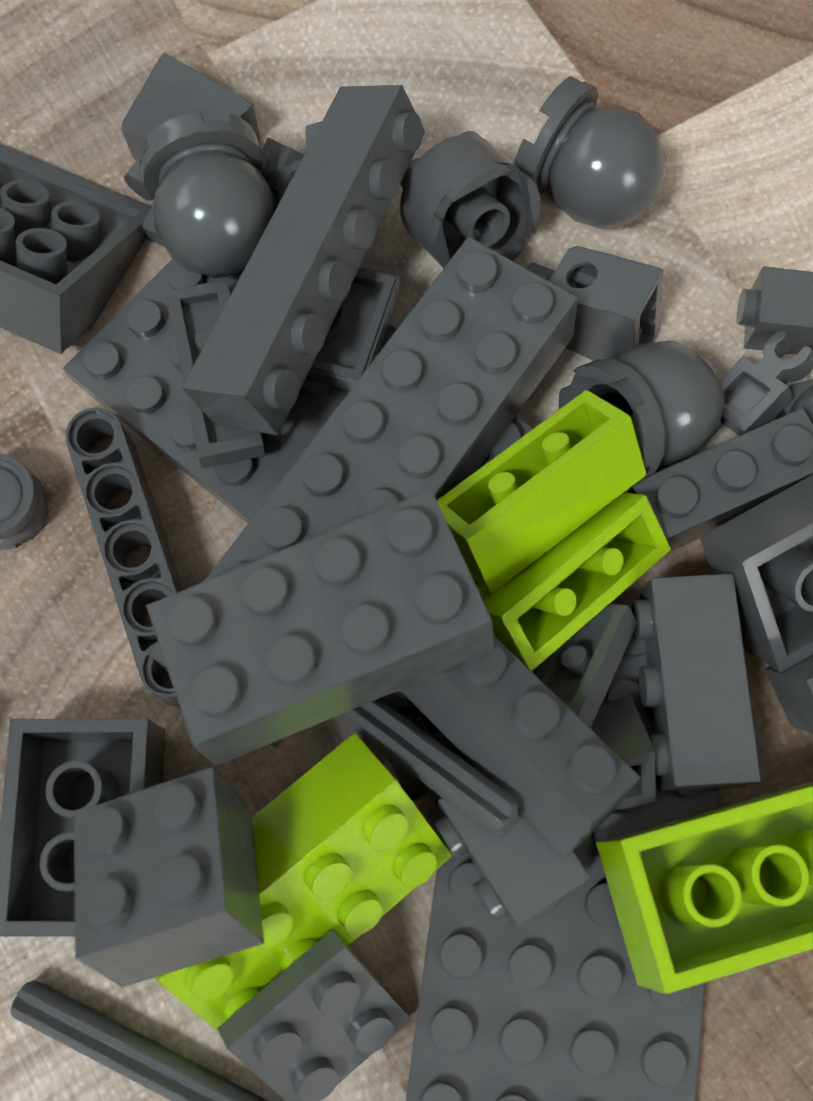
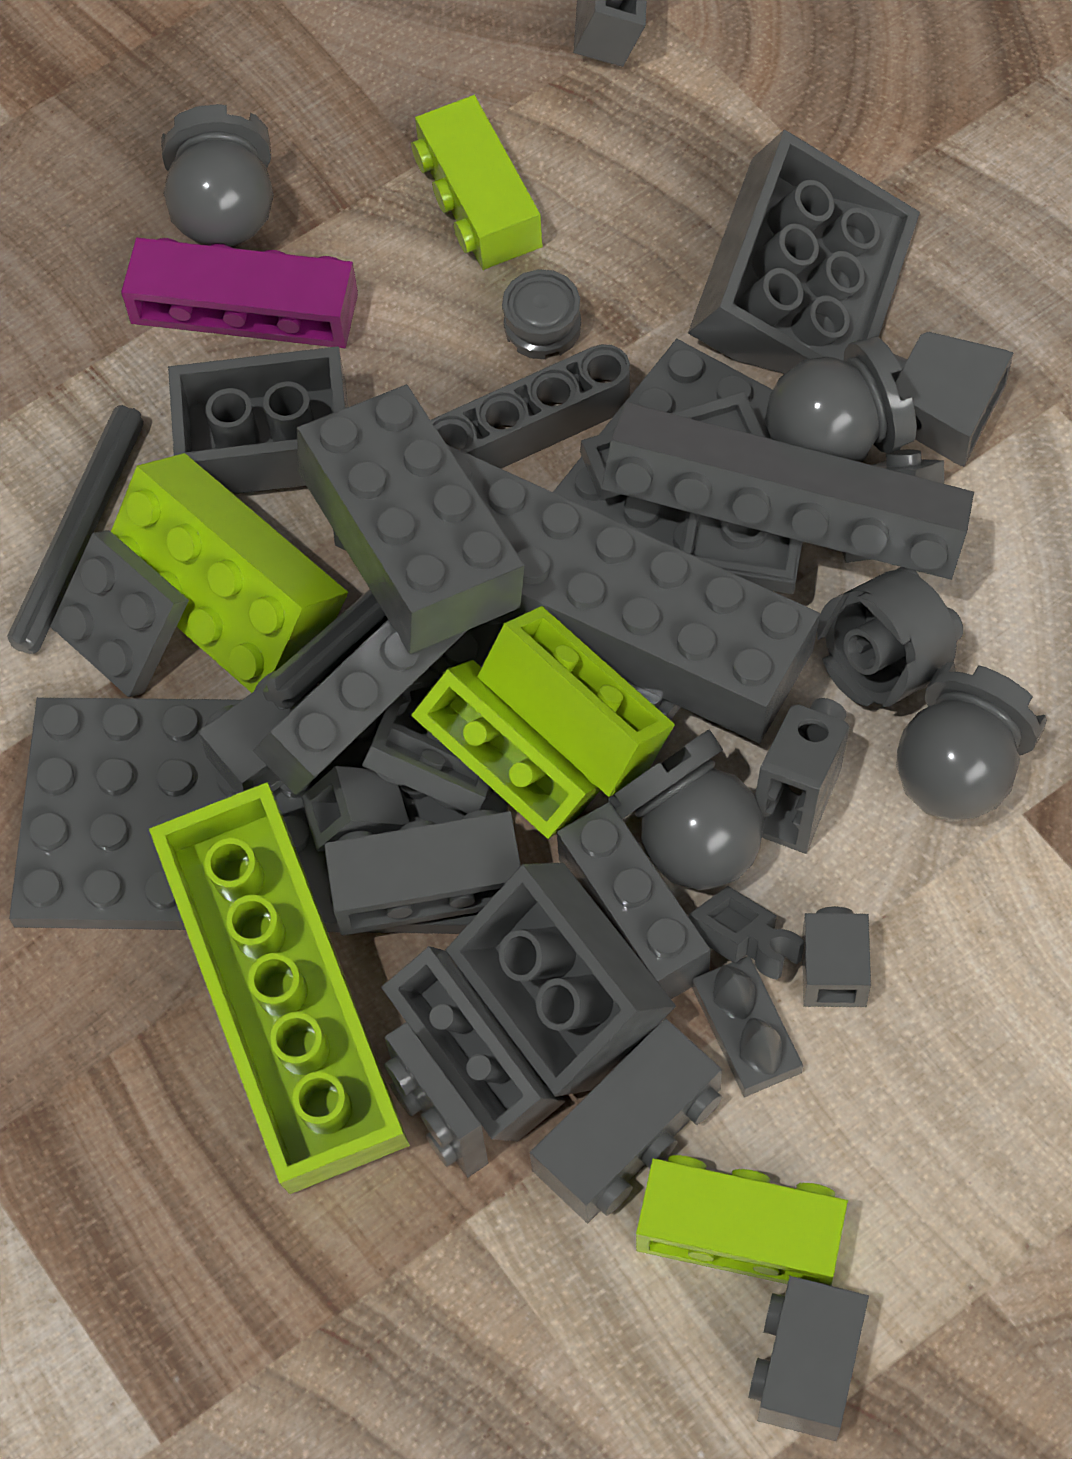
camera: 85 degrees right, 10 degrees down
(165, 879) = (212, 455): dark grey brick -> none

